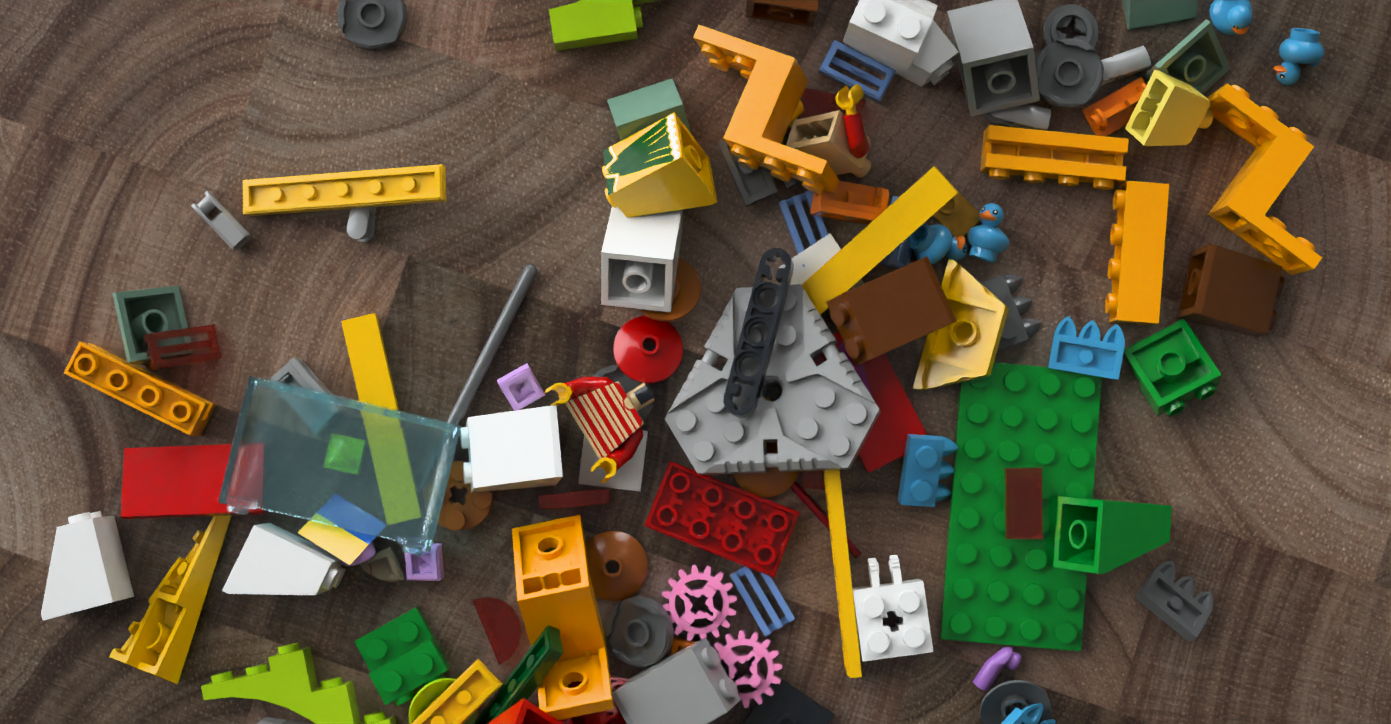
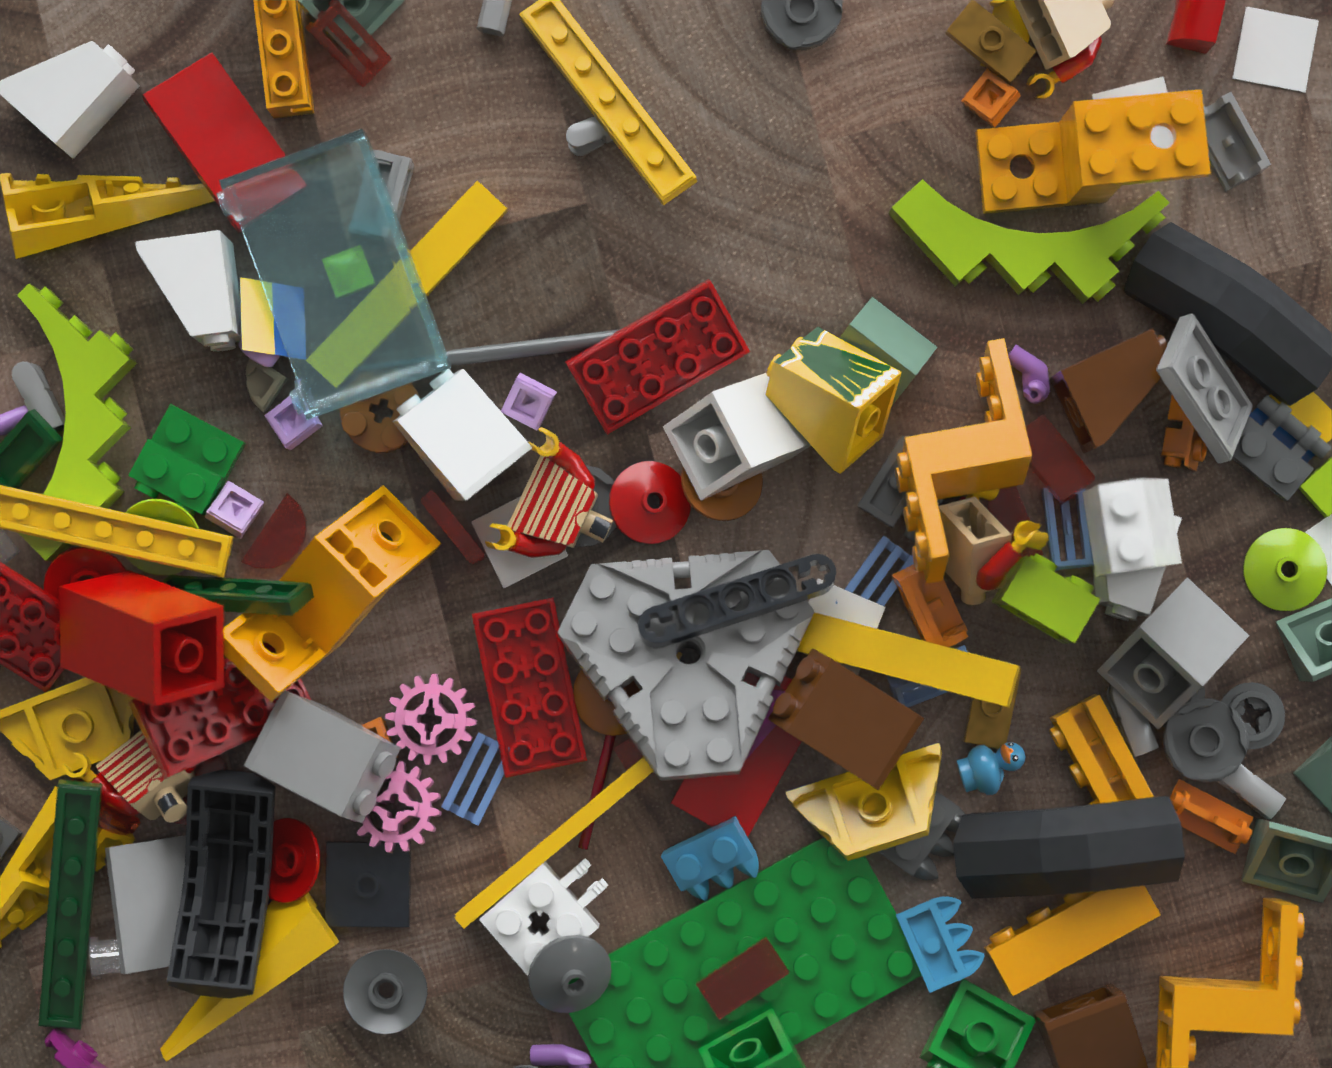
camera: 60 degrees right, 0 degrees up
(459, 645) = (234, 509): none -> lavender tile
(549, 276) = (657, 356): none -> red tile
(631, 560) = (430, 623): dark orange dish -> none
(639, 631) = (364, 678): dark grey tile -> none
(736, 24) = (1034, 374): none -> medium lavender arm
(809, 48) = (1056, 461): none -> clear red tile
(900, 116) = (1047, 599): none -> lime brick
(932, 618) = (568, 959): none -> dark grey dish
(936, 243) = (945, 718): dark azure animal -> none
(1082, 216) = (1069, 849): none -> black piece
(1169, 112) = (1233, 868): light yellow torso -> none

